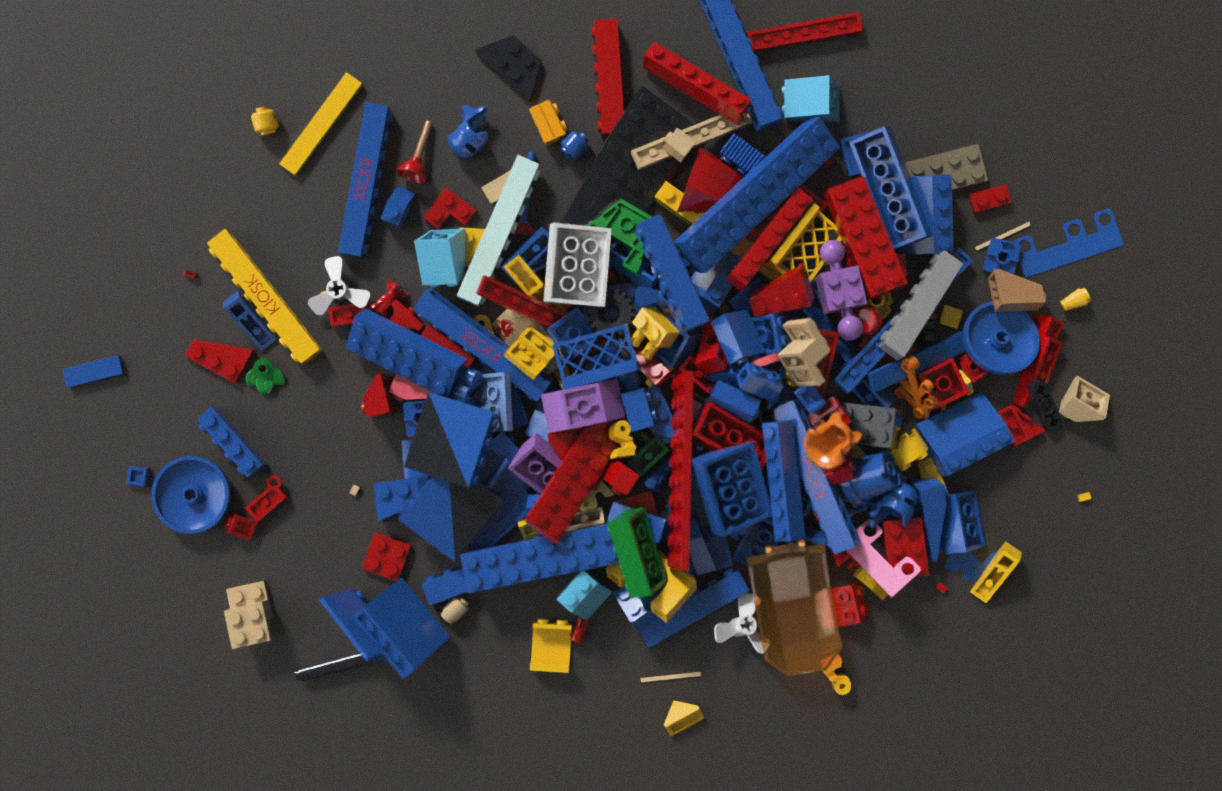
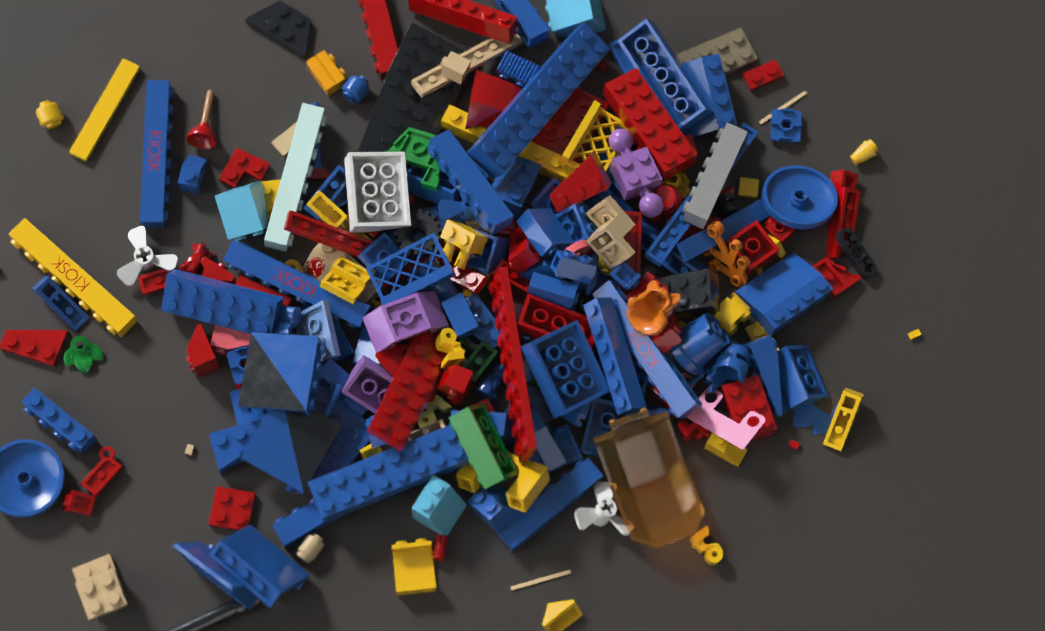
camera: 15 degrees left, 15 degrees down
(467, 138) = (251, 98): blue piece -> none
(769, 239) = (558, 139): red brick -> none
(850, 604) = (706, 473): red bracket -> none
(1014, 292) = (804, 154): medium nougat slope -> none
(1075, 249) = (854, 108): blue piece -> none
(1084, 402) = (893, 244): tan slope -> none

